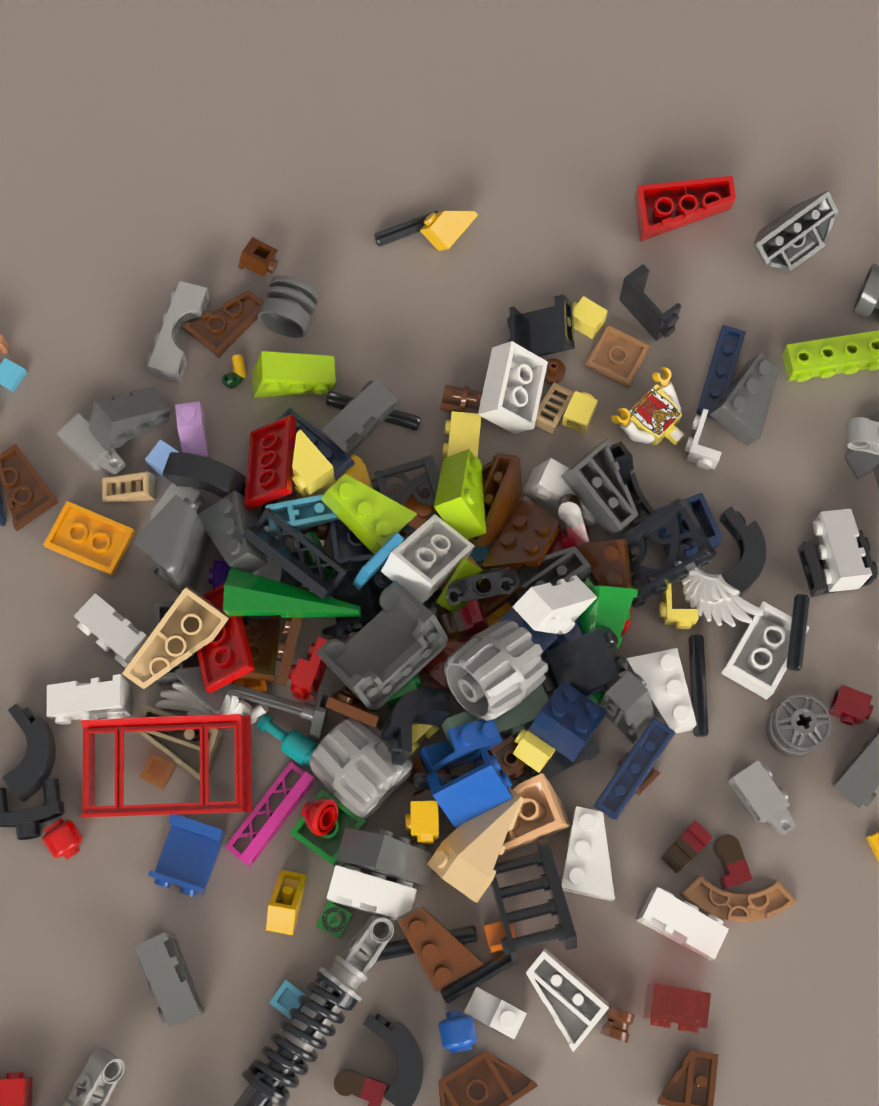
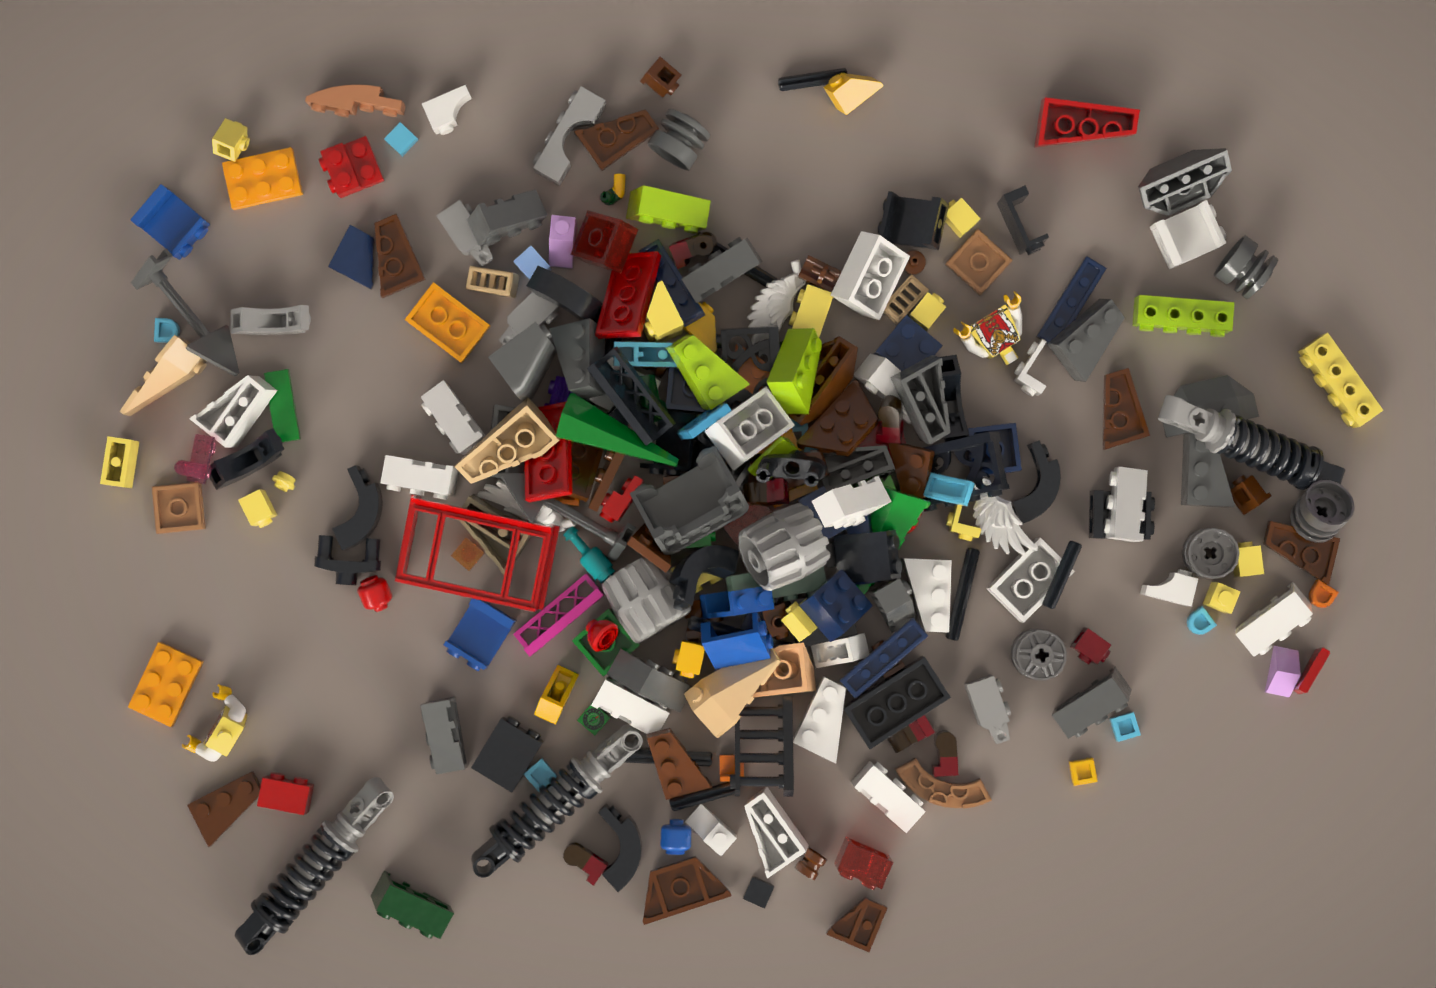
camera: 10 degrees right, 15 degrees up
(48, 334) = (444, 109): none -> white arch
(235, 418) = (604, 241): none -> clear red brick
(246, 983) = (508, 753): none -> black brick
(326, 403) = (695, 245): none -> leg
(424, 437) = (775, 302): none -> white animal
(567, 1074) = (758, 892): none -> black tile
(569, 443) = (908, 345): none -> dark blue brick
(585, 775) = (840, 651): none -> white arch
(653, 571) = (949, 489): none -> medium azure tile
(661, 816) = (896, 702): none -> black brick
(805, 461) = (1122, 411): none -> reddish brown wing
(816, 283) = (1188, 234): none -> white panel

